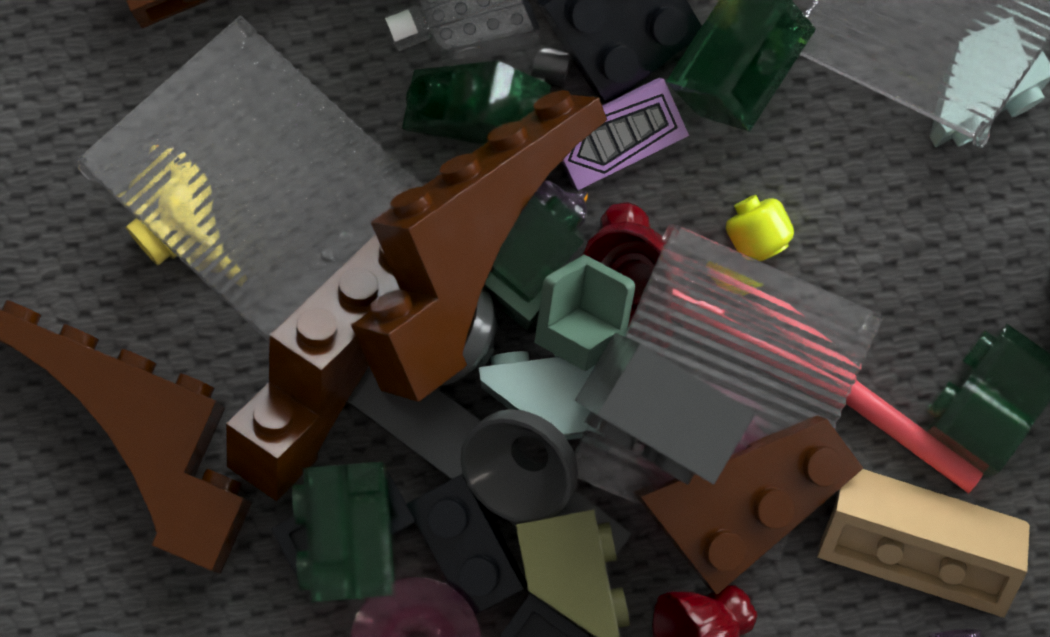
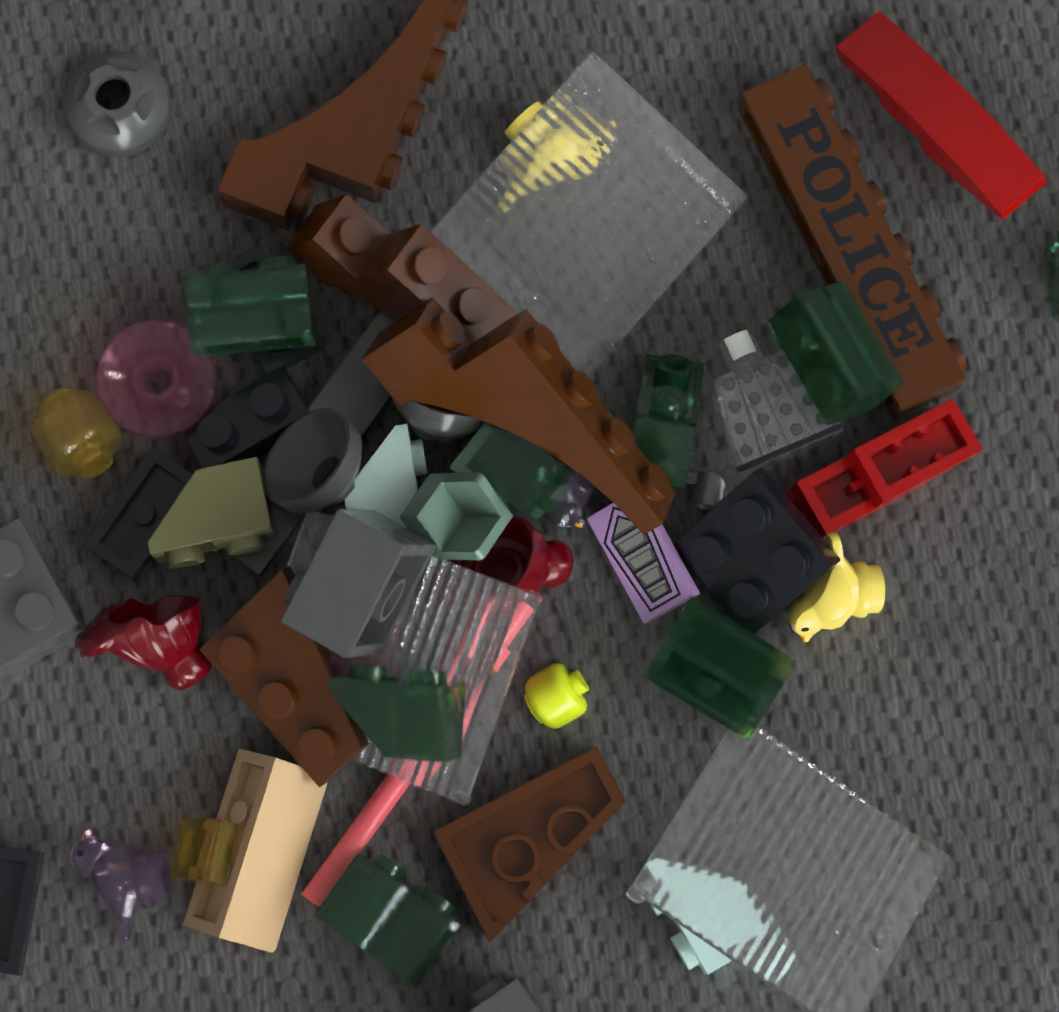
camera: 85 degrees right, 0 degrees up
(795, 370) = (405, 716): none -> clear green slope
(907, 258) = (526, 836): none -> reddish brown wing
(929, 592) = (203, 850): none -> clear yellow tile

